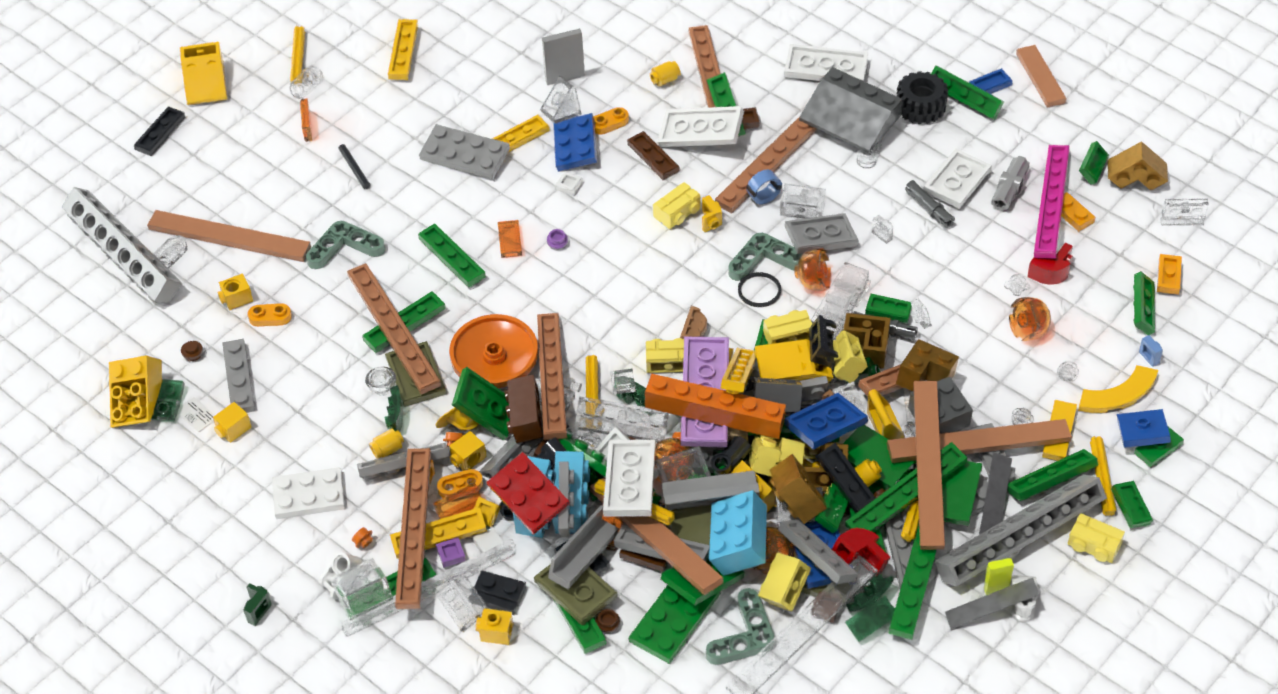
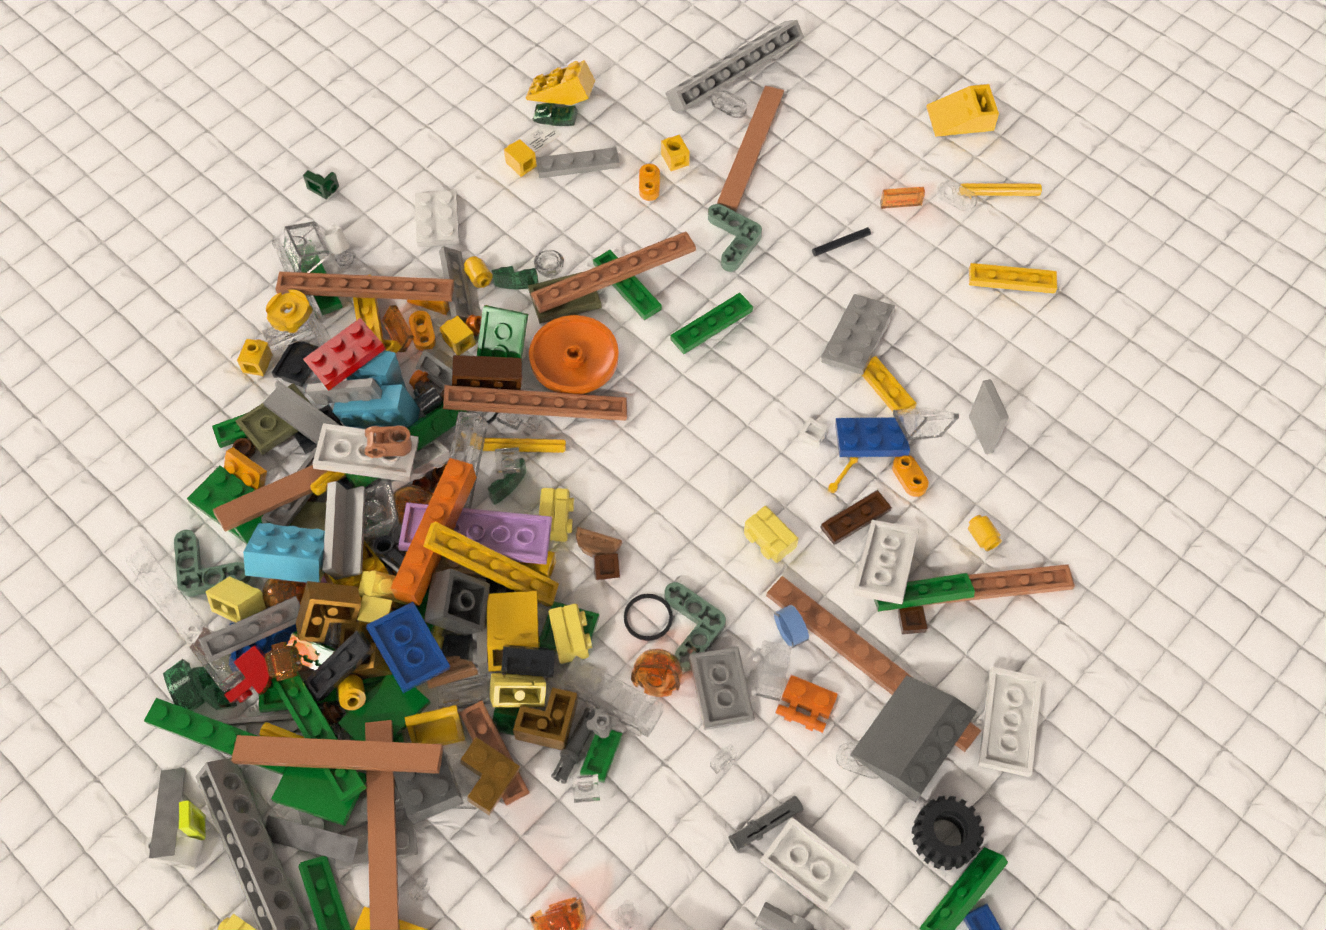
camera: 90 degrees right, 10 degrees up
(159, 131) = (891, 88): black tile -> none
(192, 350) = (610, 127): reddish brown plate -> none
(362, 538) = (376, 257): orange plate -> none
(449, 602) = (295, 318): none -> yellow plate
(450, 552) = (343, 320): medium lavender plate -> none
(509, 238) = (734, 375): clear orange tile -> none
(557, 239) = (730, 418): medium lavender plate -> none
(623, 171) = (833, 486): none -> yellow hinge
(623, 450) = (386, 441): none -> nougat piece
(634, 610) = (244, 469): none -> light orange plate
(712, 214) = (759, 571): yellow bracket -> none
(717, 315) = (606, 566): none -> reddish brown plate
(826, 175) = (810, 698): none -> orange plate
(848, 516) = (283, 661): none -> clear orange head
(866, 302) = (601, 730): none -> light grey plate

